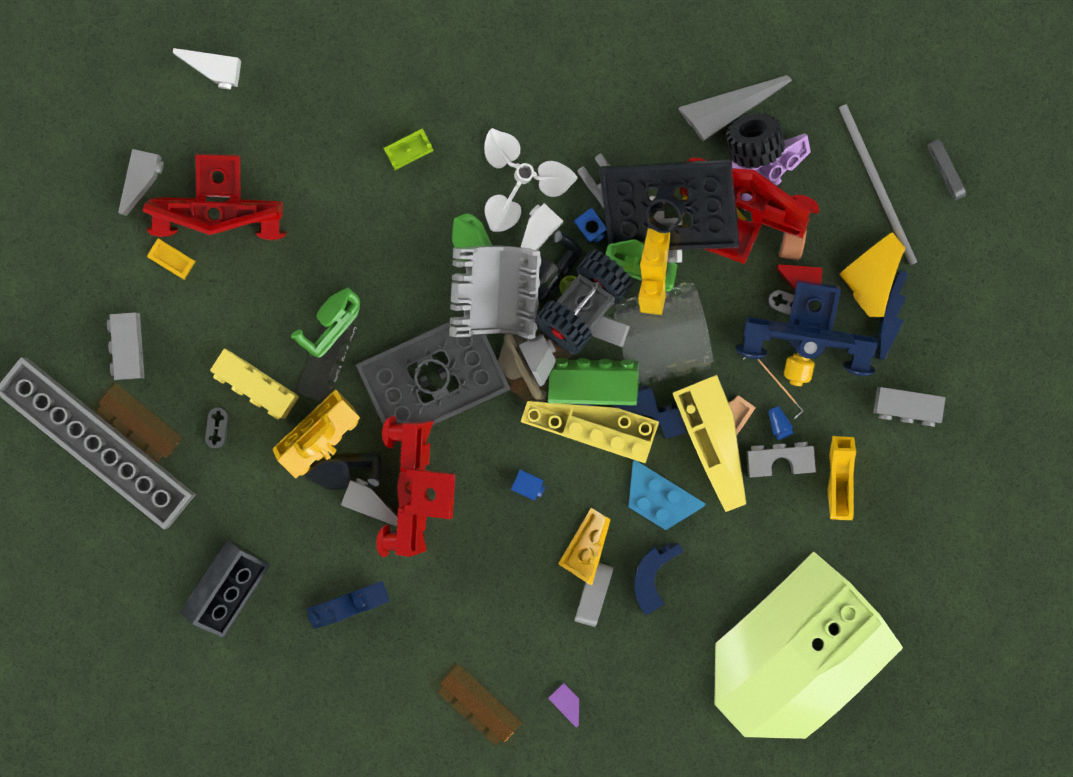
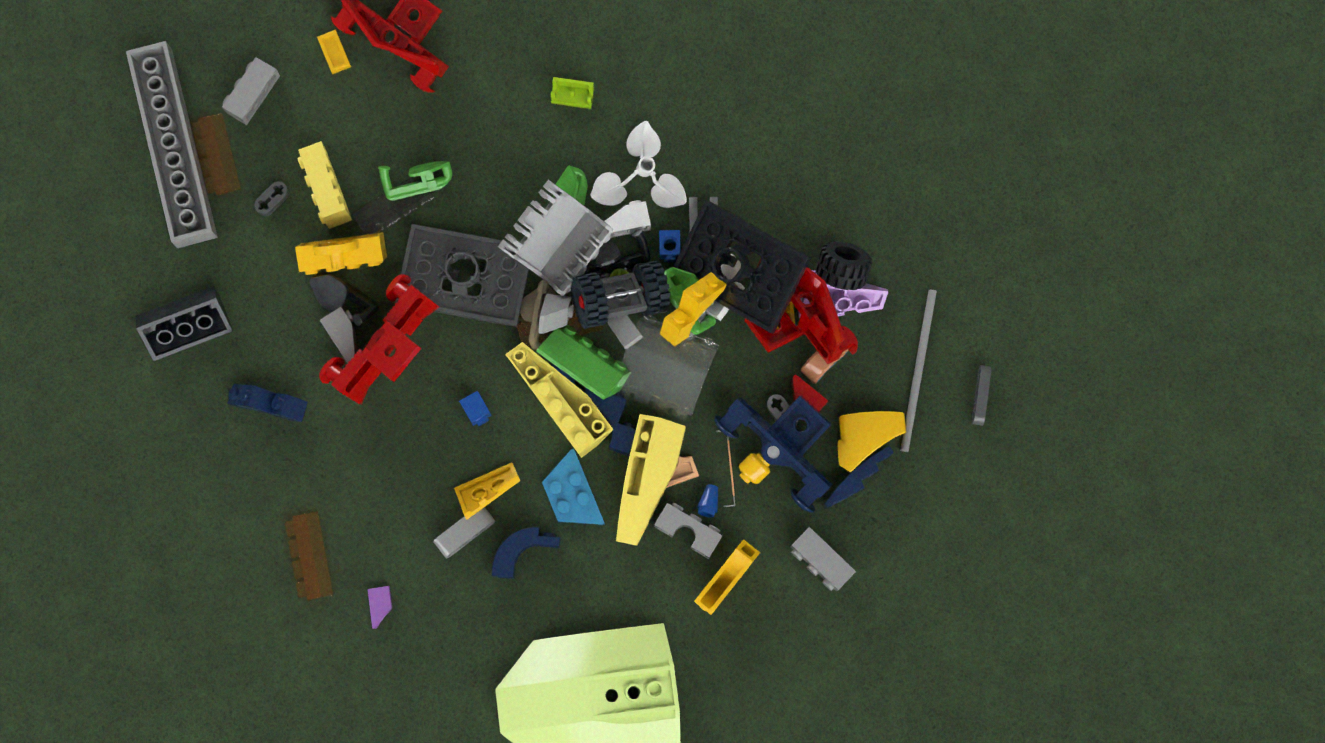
camera: 30 degrees right, 10 degrees down
(717, 112) = (827, 227): light grey wedge -> none

